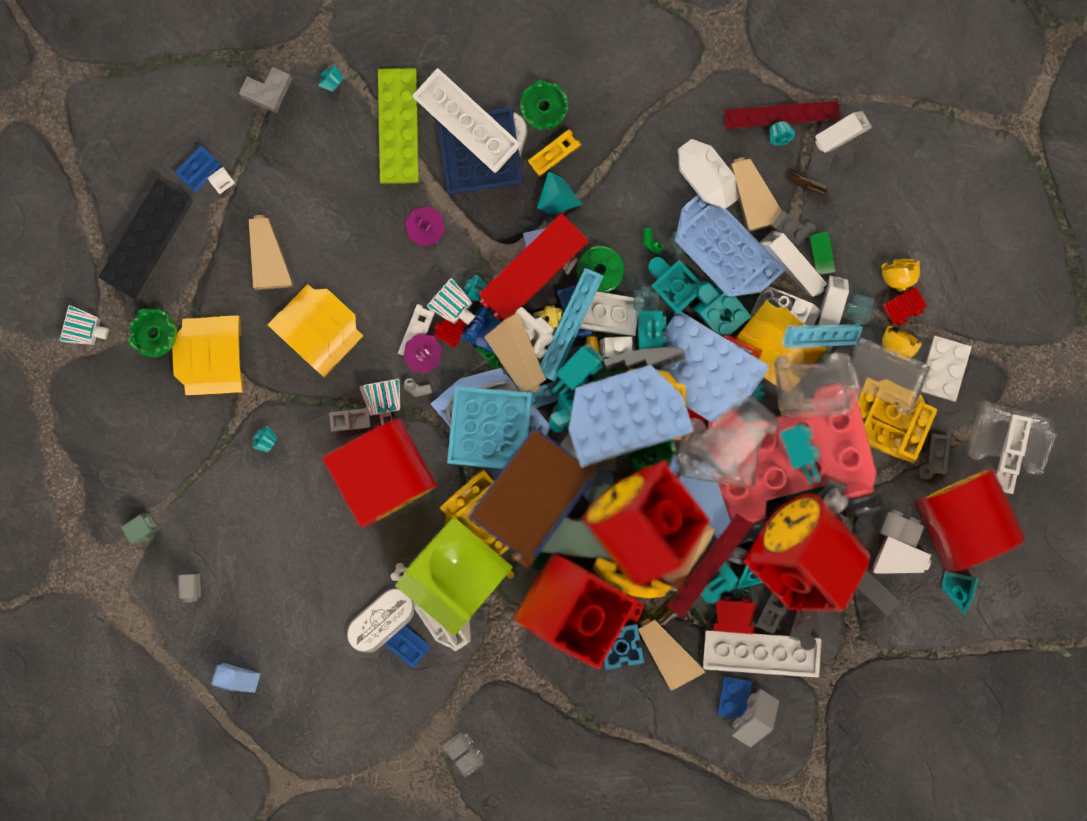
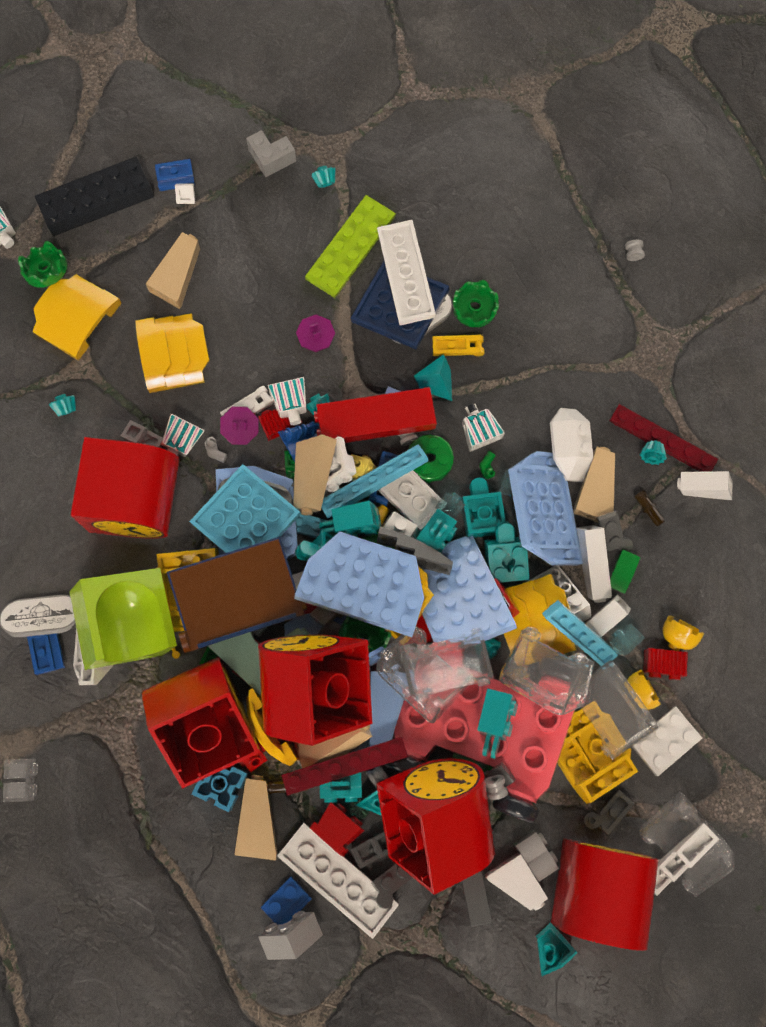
camera: 30 degrees right, 10 degrees down
(623, 213) = (480, 428): none -> torso

